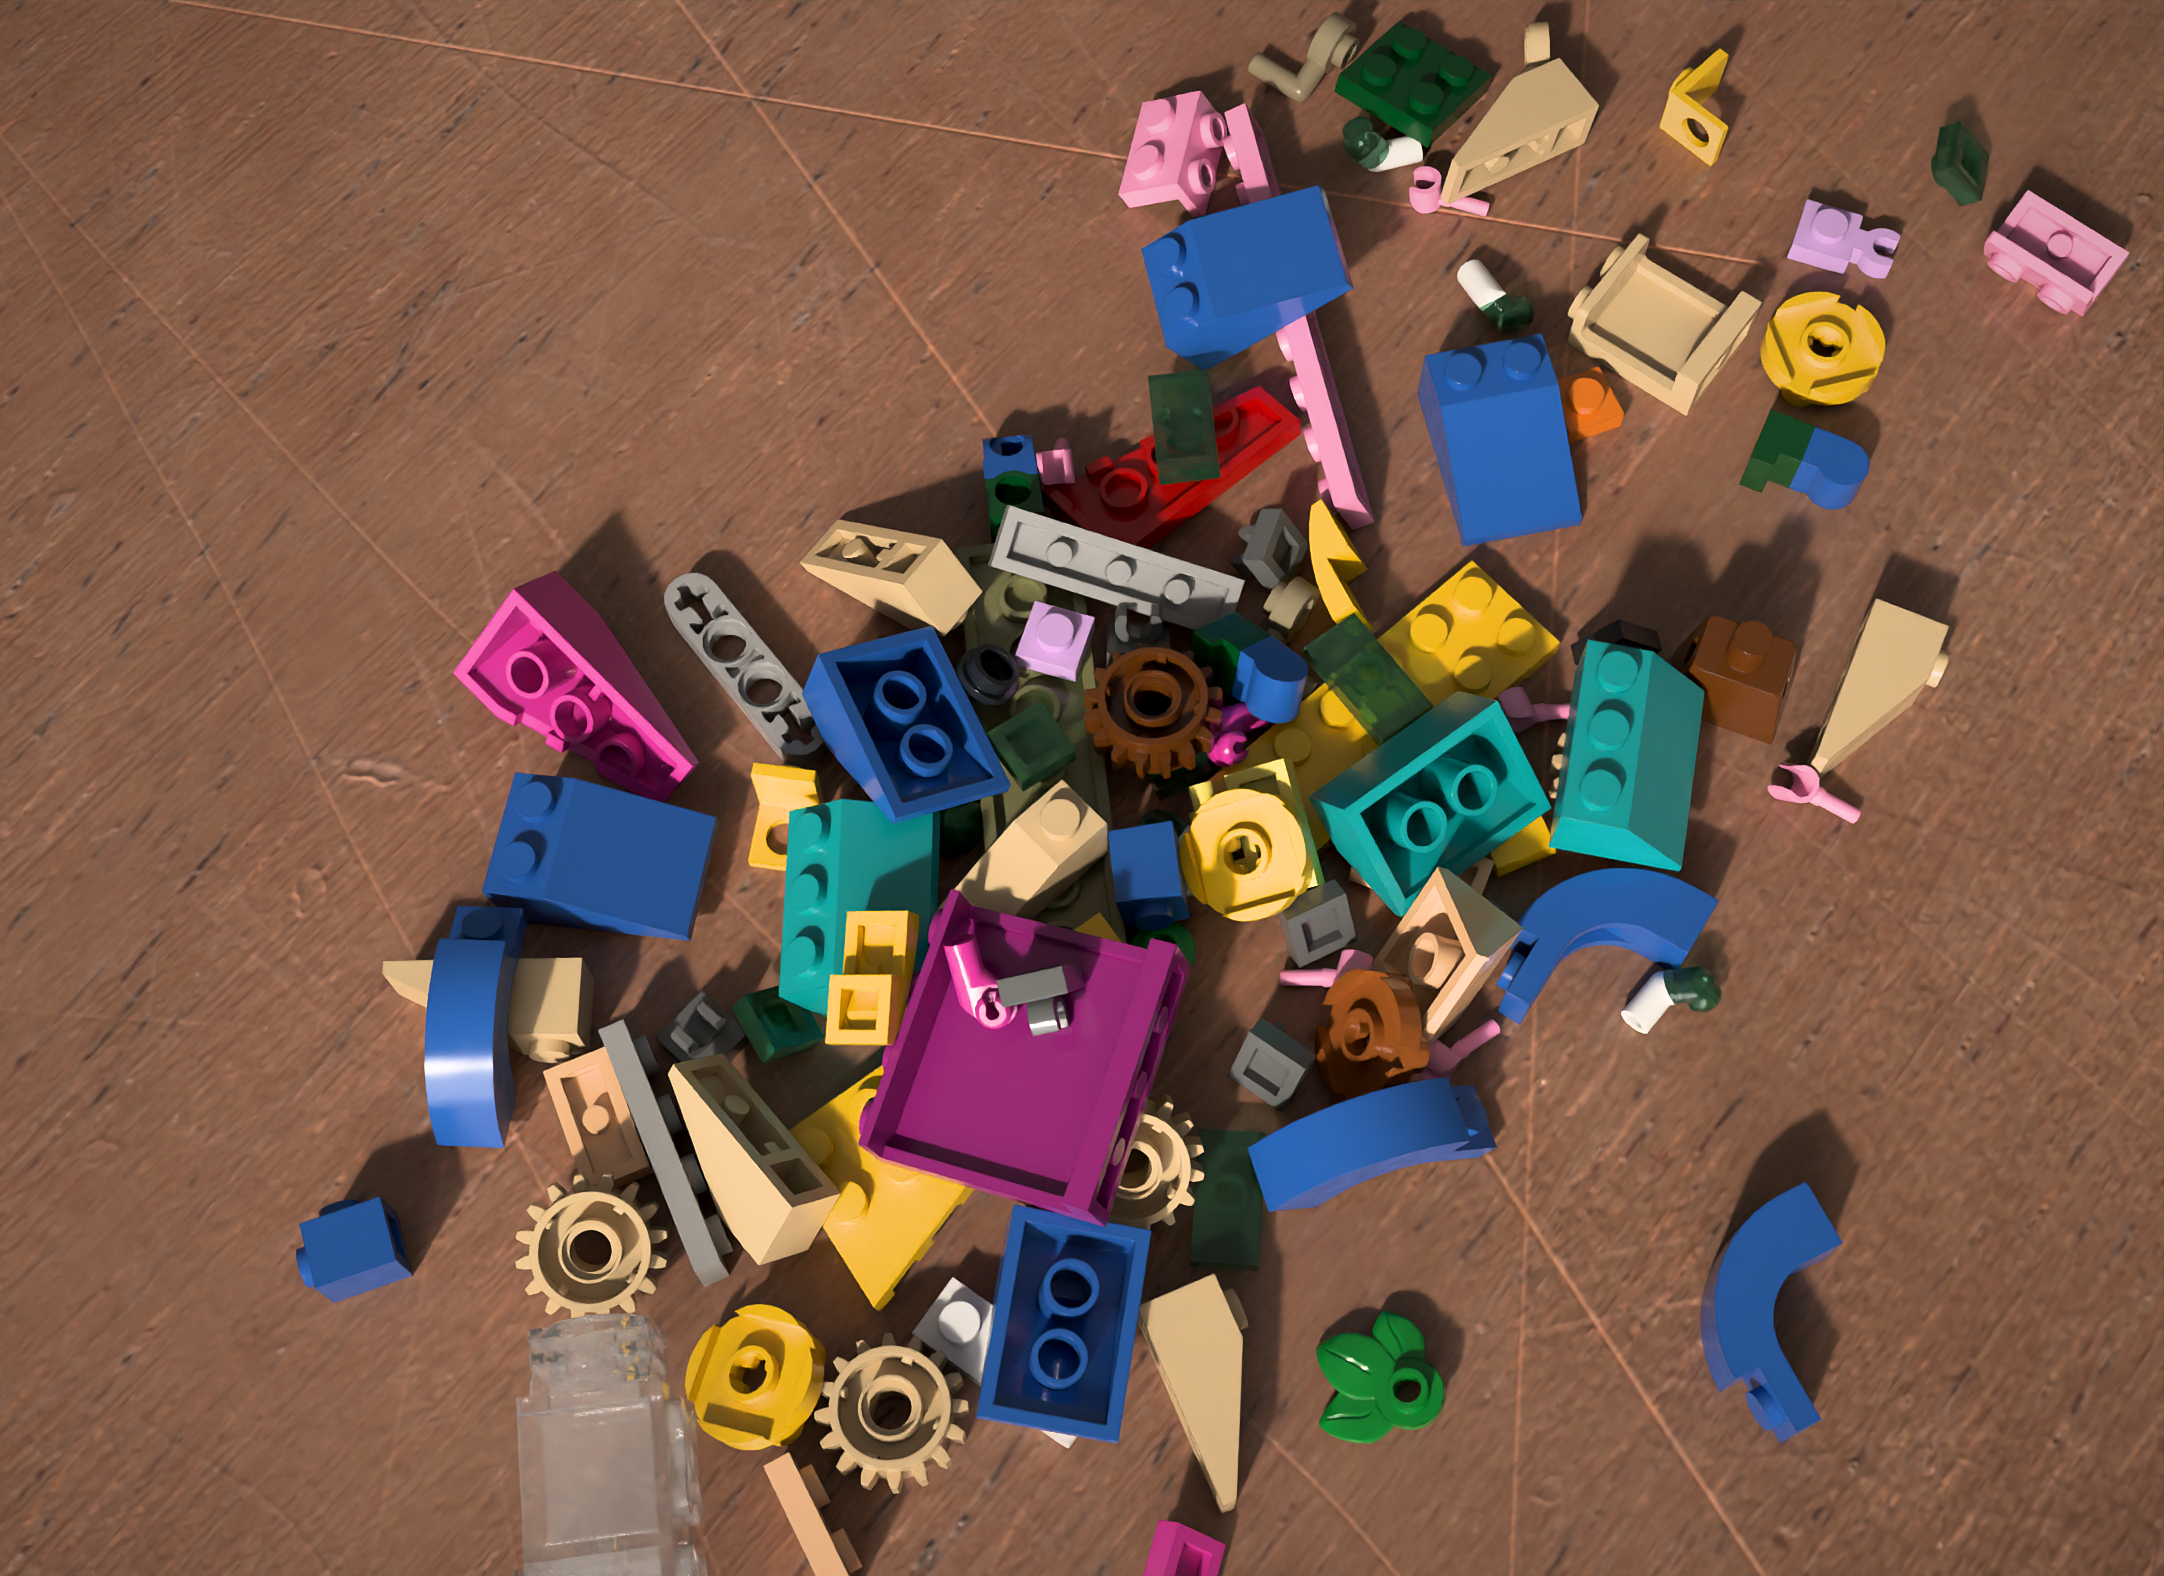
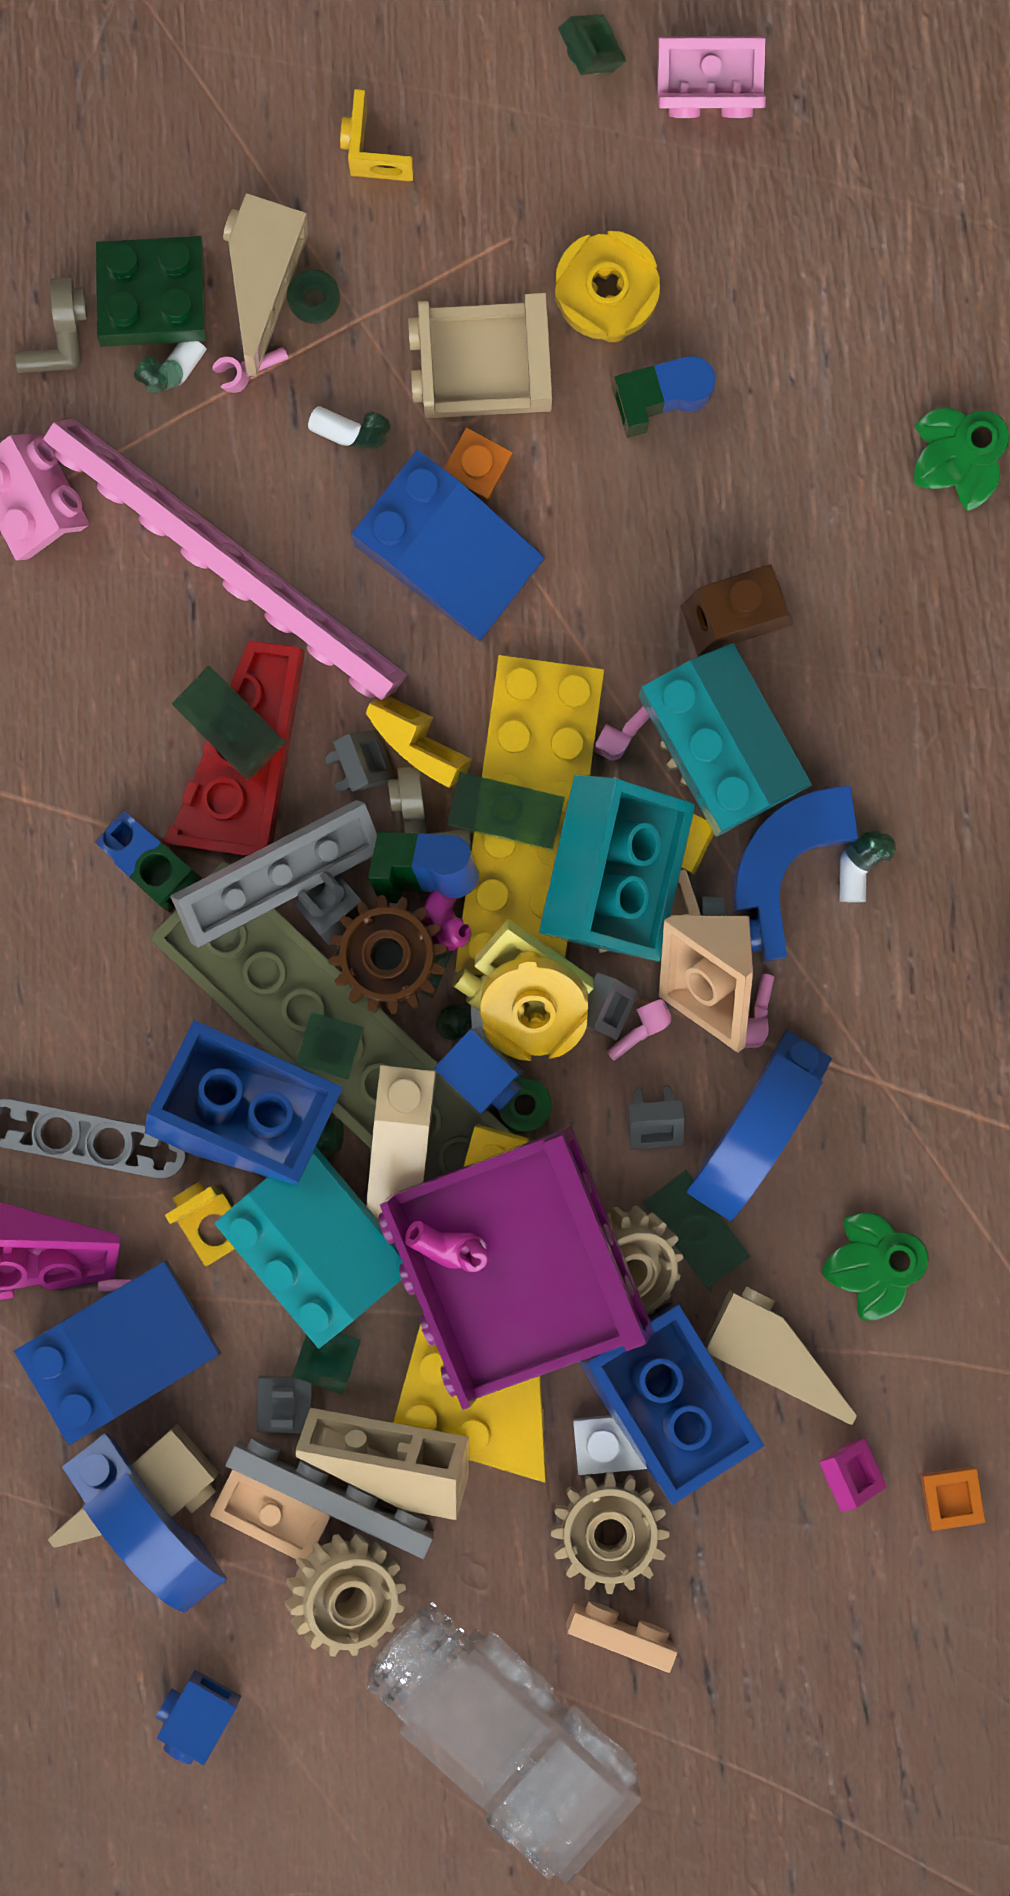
camera: 45 degrees left, 20 degrees up
(784, 1400) = (500, 1610): yellow plate -> none
(876, 978) = (384, 1304): yellow slope -> none
(896, 573) = (125, 997): tan slope -> none
(988, 674) = (259, 1008): black plate -> none
(1044, 994) = (495, 1223): tile -> none
(1055, 641) = (278, 954): lavender plate -> none
(1056, 465) = (162, 819): bright pink hand -> none
(1245, 274) = (174, 568): blue slope -> none
(1377, 1007) = (700, 1036): dark orange plate -> none
(1536, 44) = (217, 188): tan tile -> none
(1552, 170) = (309, 281): none -> clear green plate
(1623, 634) = (642, 640): black tile -> none
(1807, 789) = (841, 646): bright pink hand -> none
(1832, 239) = (545, 180): lavender plate -> none
(1881, 678) = (831, 523): tan slope -> none
(2050, 715) = (955, 459): none -> green plate

